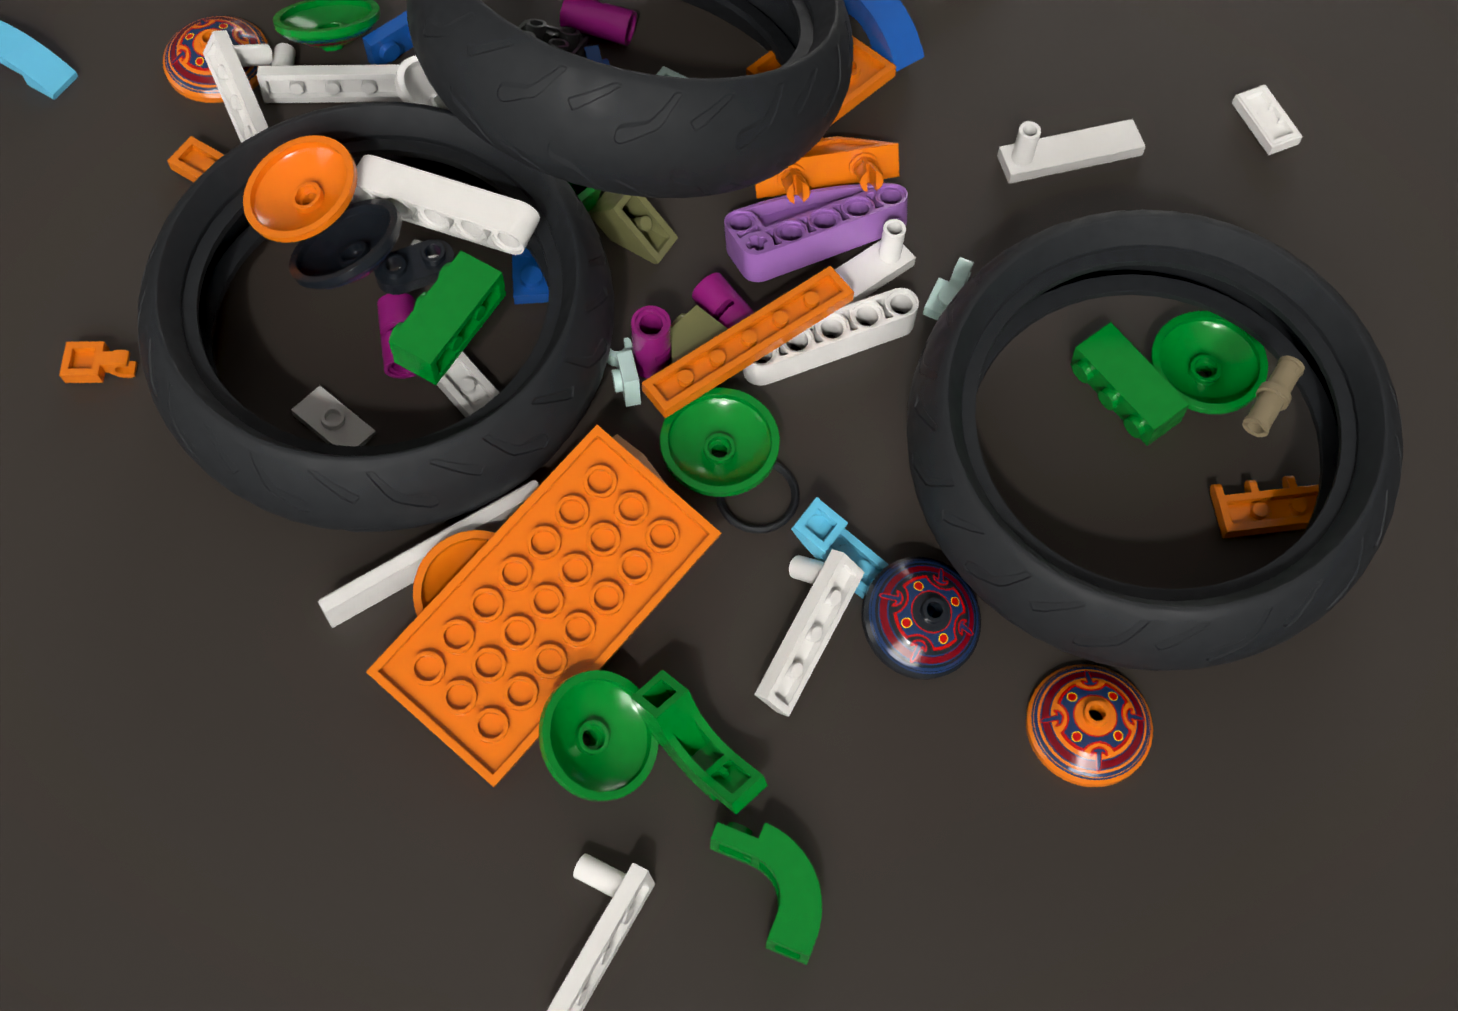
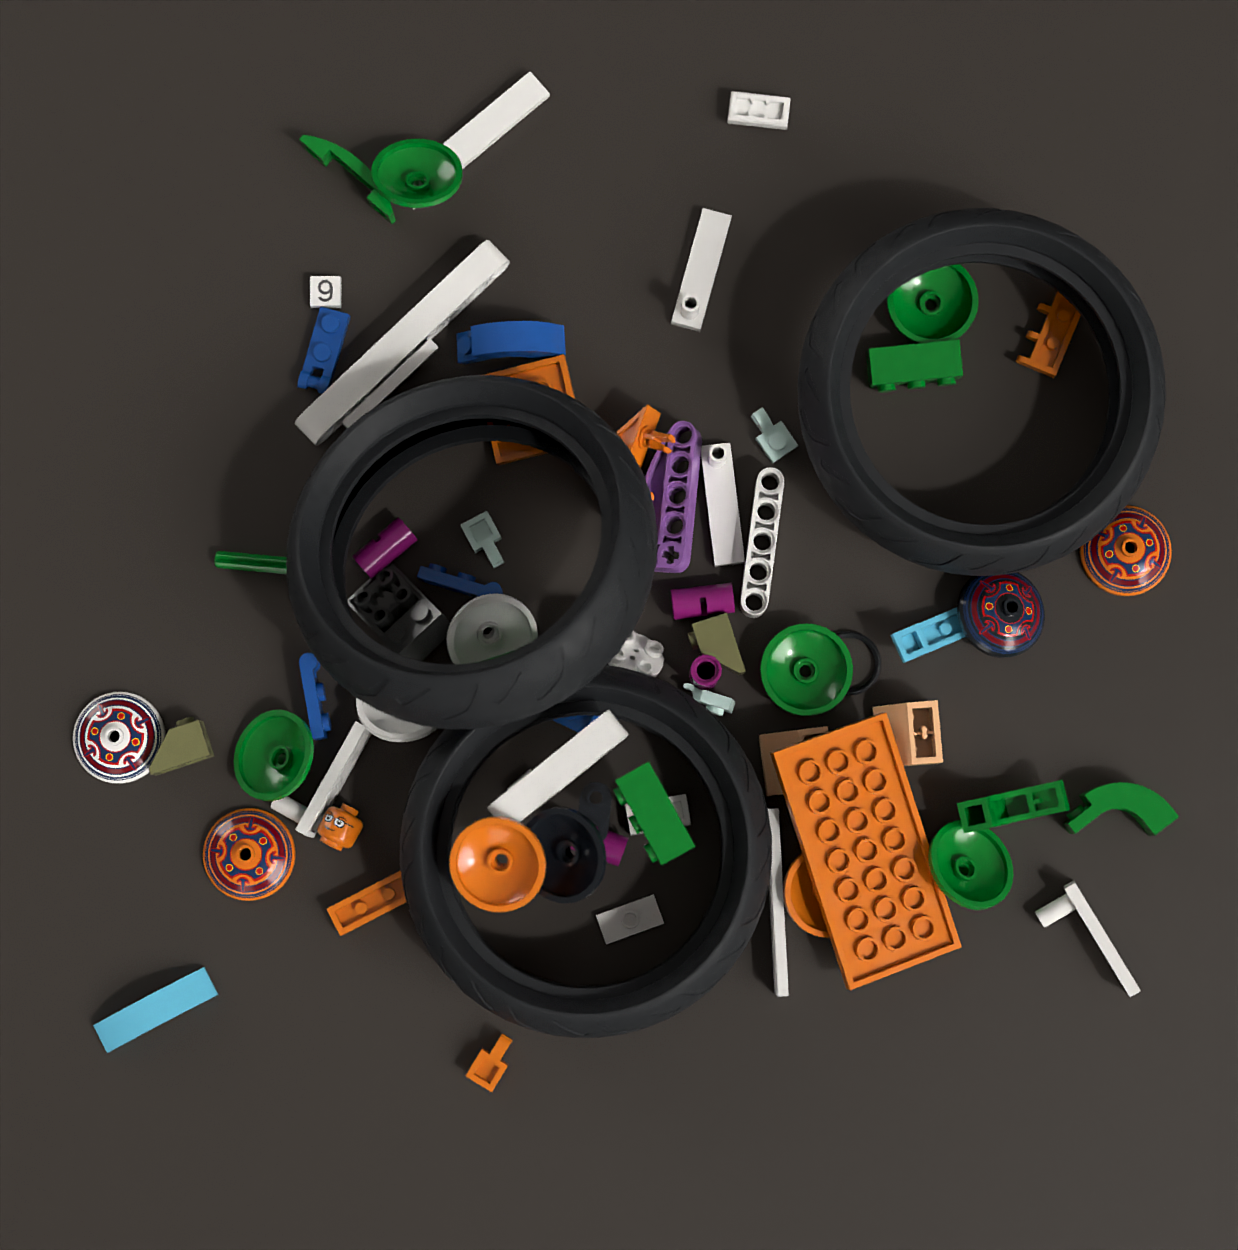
camera: 55 degrees left, 20 degrees up
(226, 67) = (314, 858): white piece -> none
(283, 102) = (340, 827): none -> orange head
(631, 274) = (640, 655): none -> white plate
(720, 592) = (915, 731): none -> light nougat slope
(747, 341) = (748, 607): orange plate -> none
(812, 627) = (952, 654): white piece -> none
(1273, 396) = (1031, 317): dark tan pin -> none

